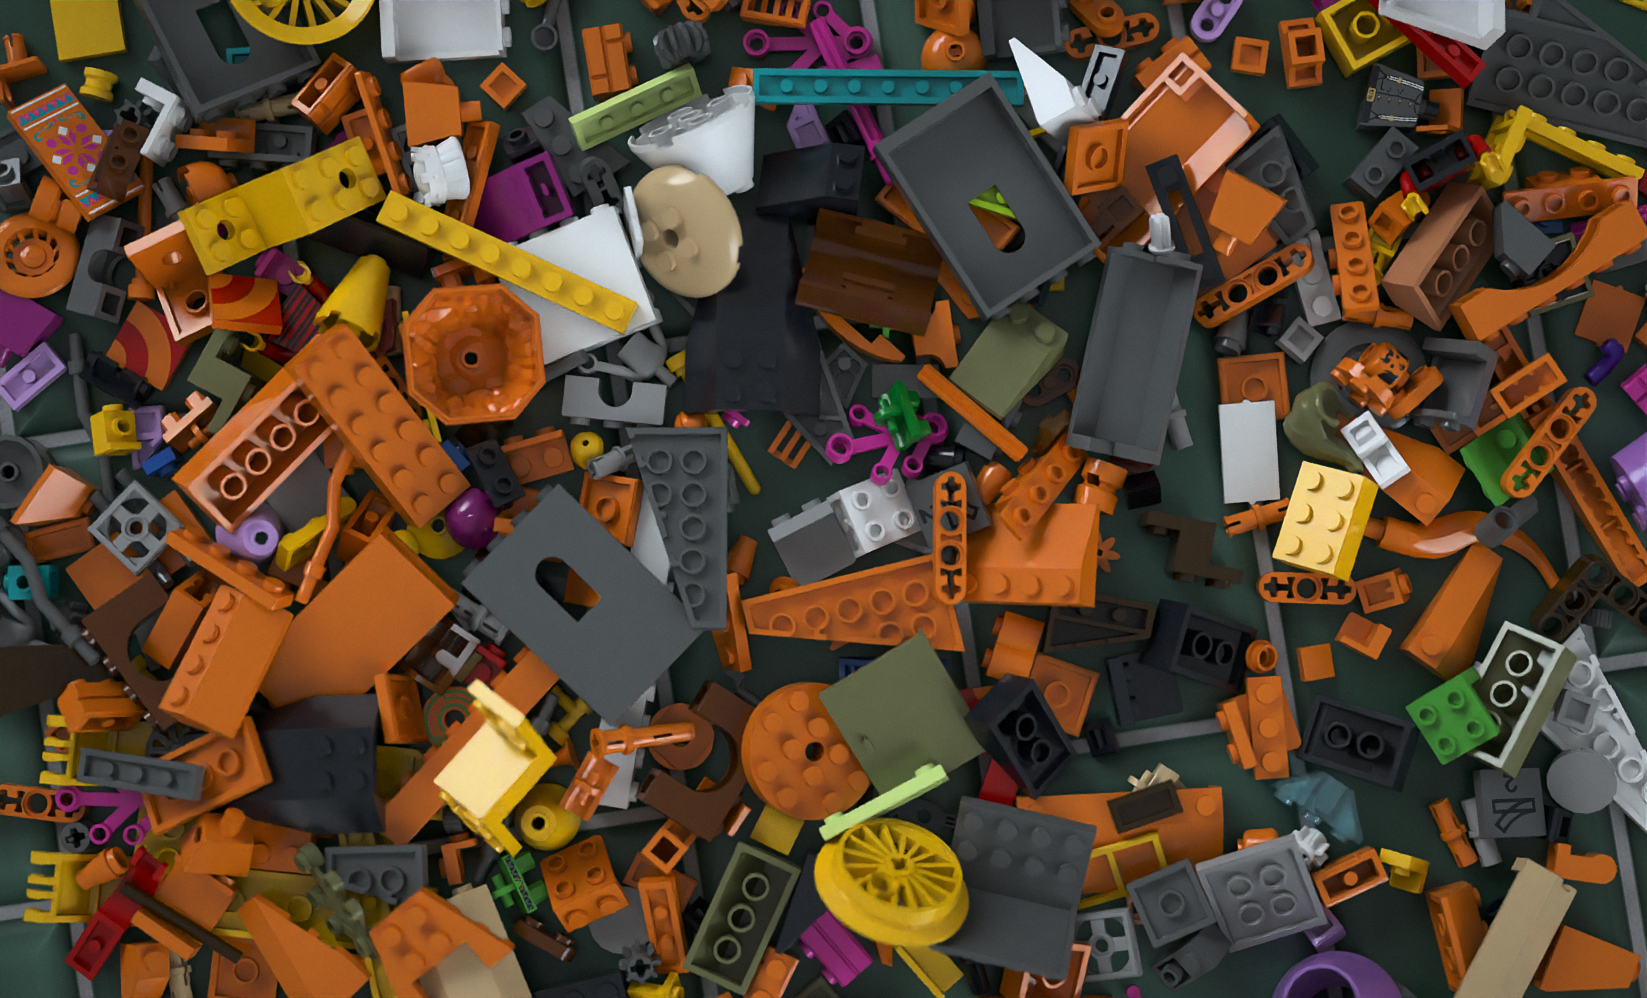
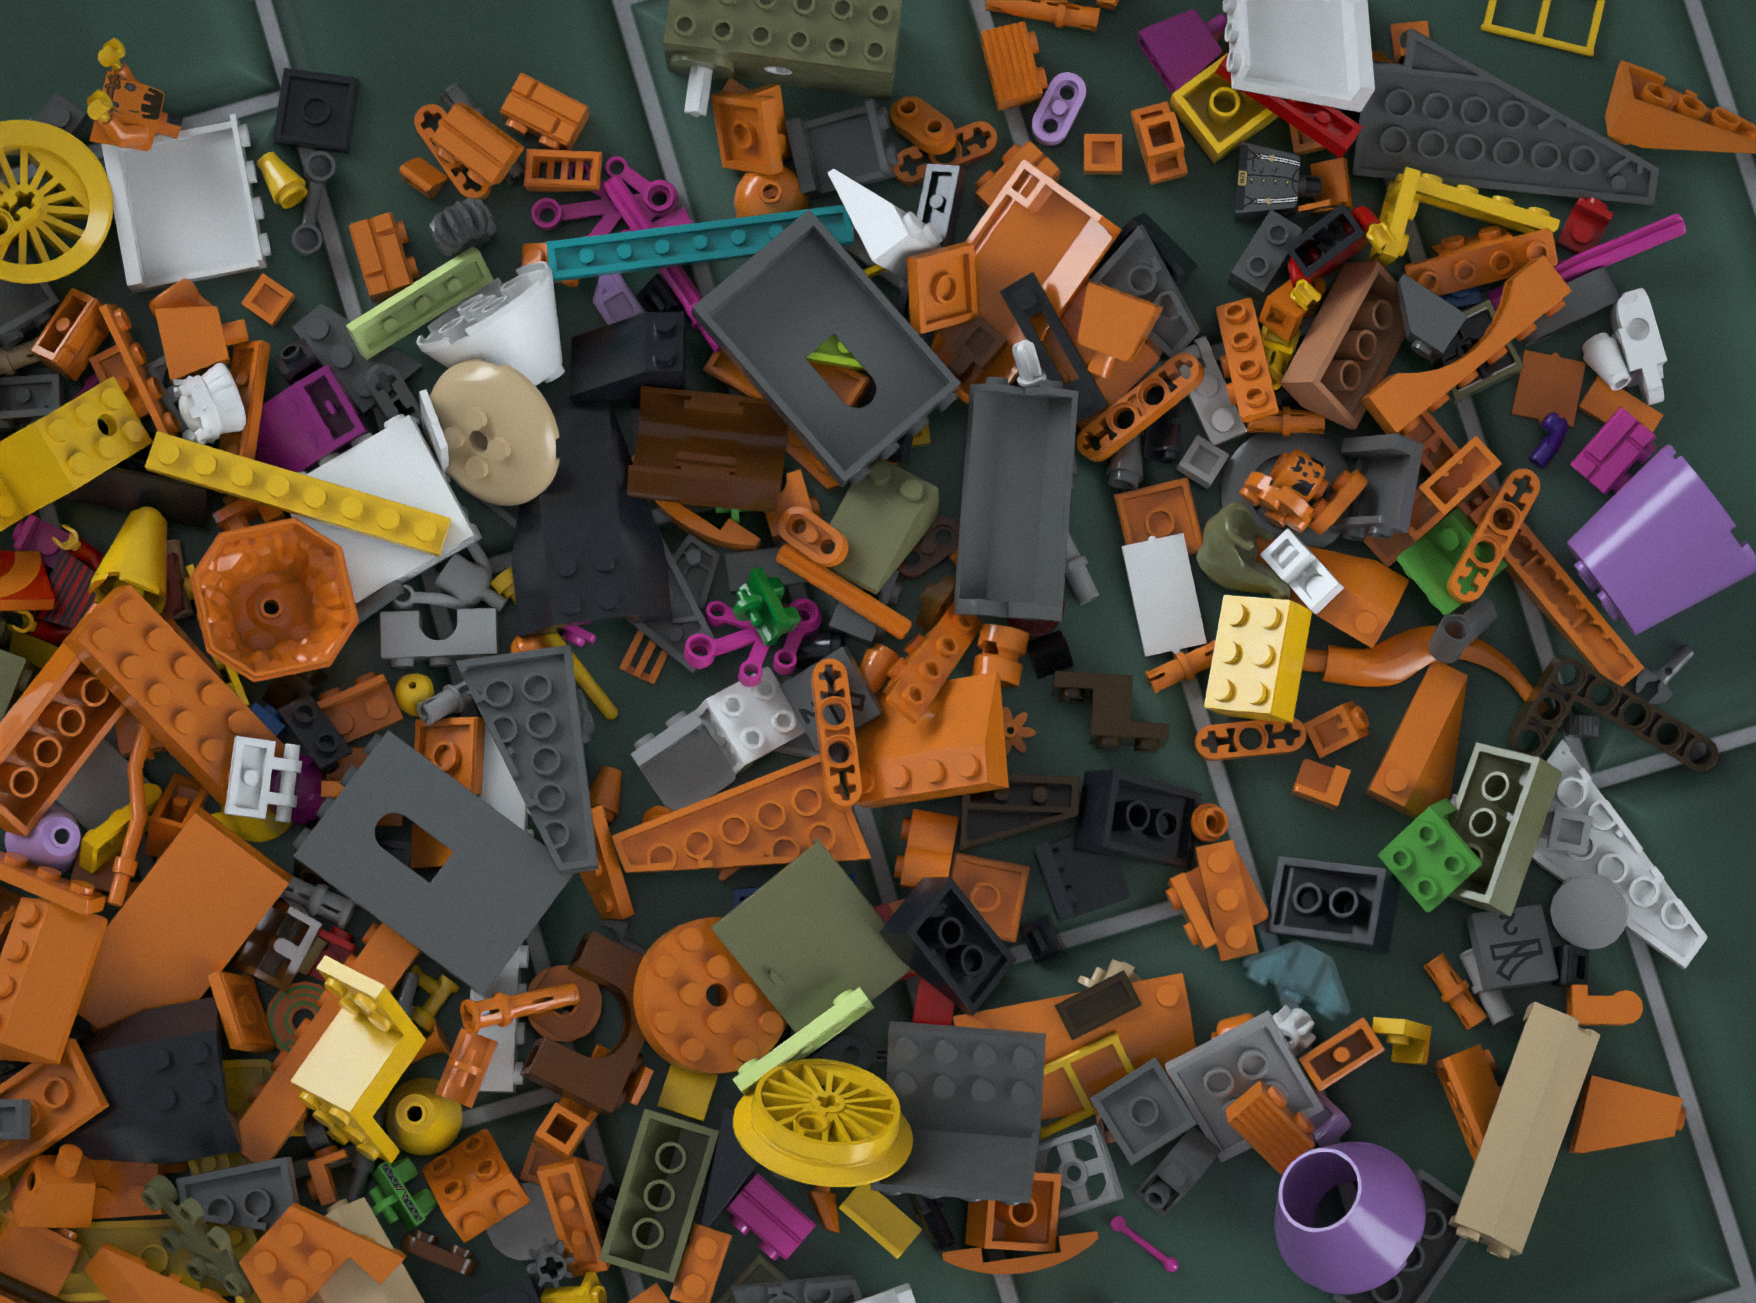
camera: 10 degrees left, 5 degrees down
(433, 509) = (251, 779): none -> white plate
(953, 362) = (814, 538): none -> orange plate
(1280, 932) = (1271, 1125): none -> orange brick
(1315, 662) = (1272, 820): orange slope -> none

